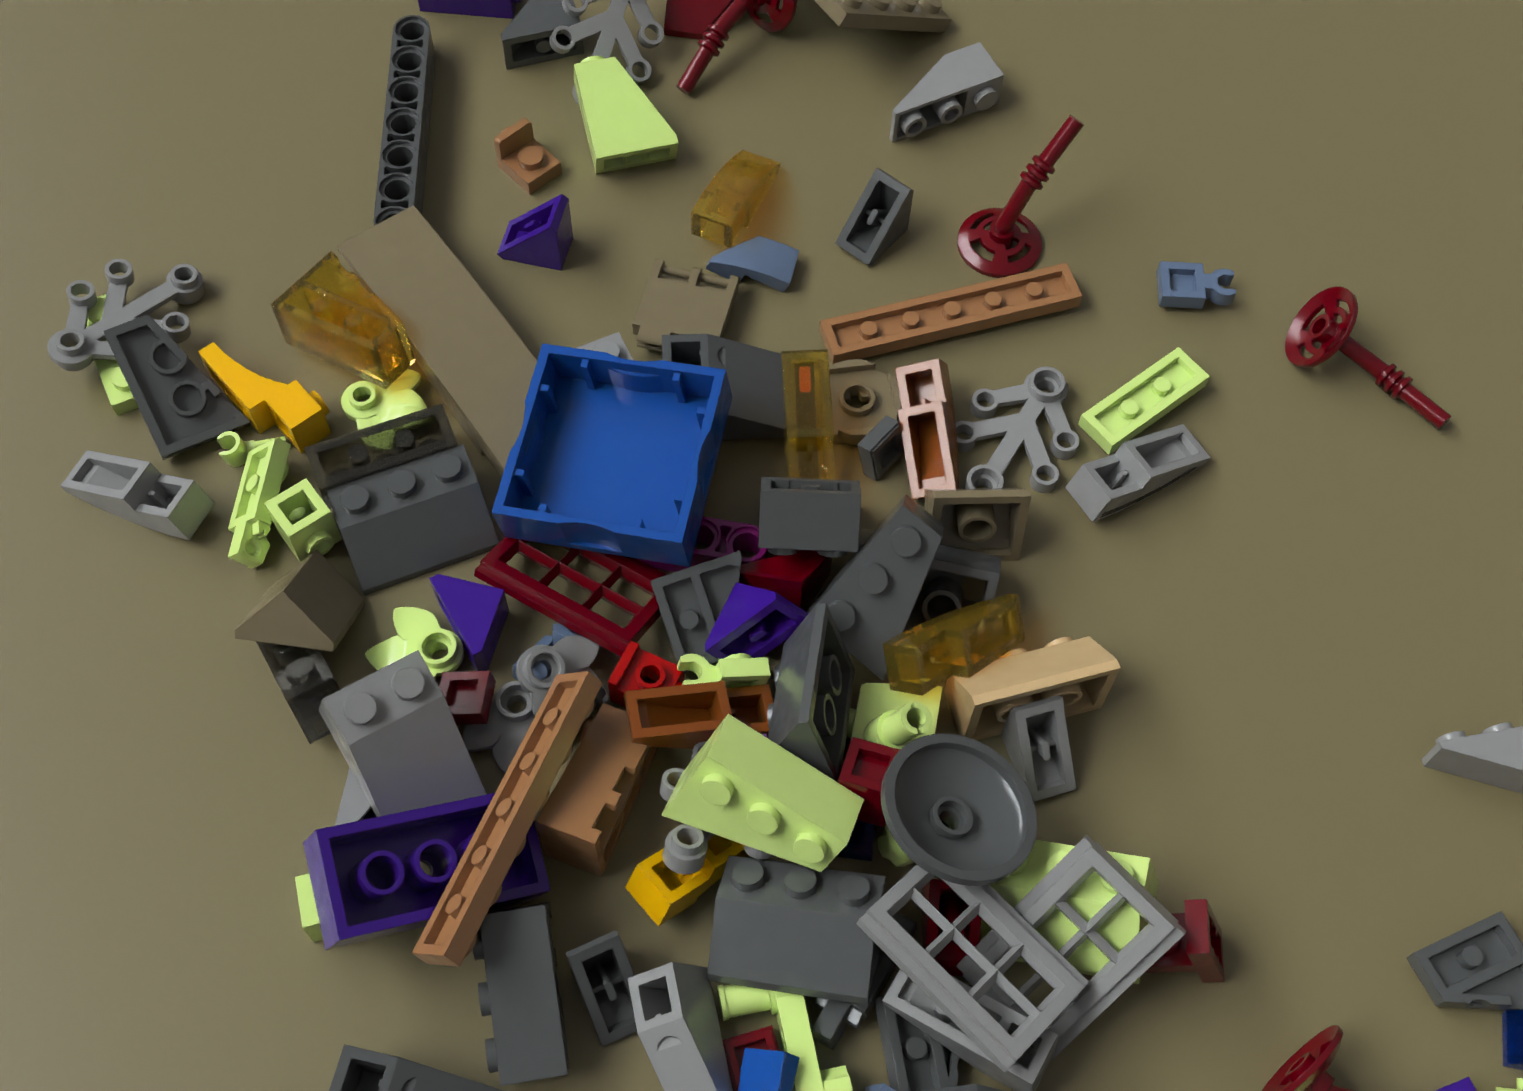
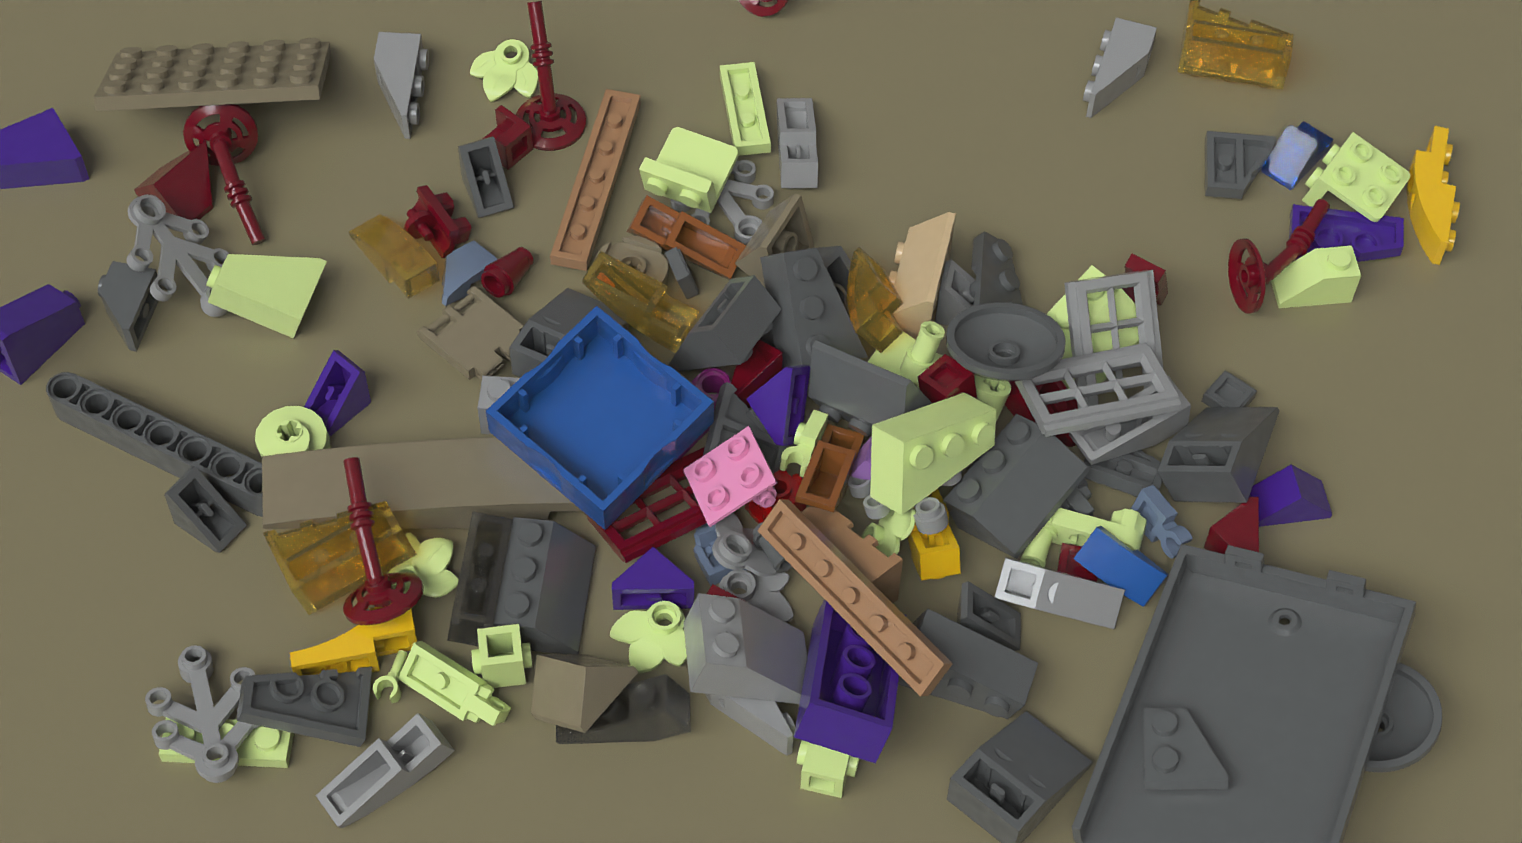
camera: 60 degrees left, 5 degrees down
(314, 373) = (378, 584): none -> dark red dish
(346, 197) = (203, 511): none -> dark grey slope
(469, 225) = (291, 431): none -> yellowish green piece
(525, 157) = (249, 375): medium nougat bracket -> none
(625, 620) = (731, 477): none -> bright pink hinge
(647, 821) = (891, 531): none -> yellowish green plate
(779, 296) = (505, 273): none -> dark red cone
(810, 196) = (433, 221): none -> dark red hips
(940, 218) = (511, 136): none -> dark red panel
(1008, 170) = (504, 73): none -> yellowish green plate
(1011, 385) = (690, 169): none -> yellowish green bracket
(1084, 771) = (994, 272): none -> dark grey wing
(1188, 286) = (672, 35): sand blue plate -> none

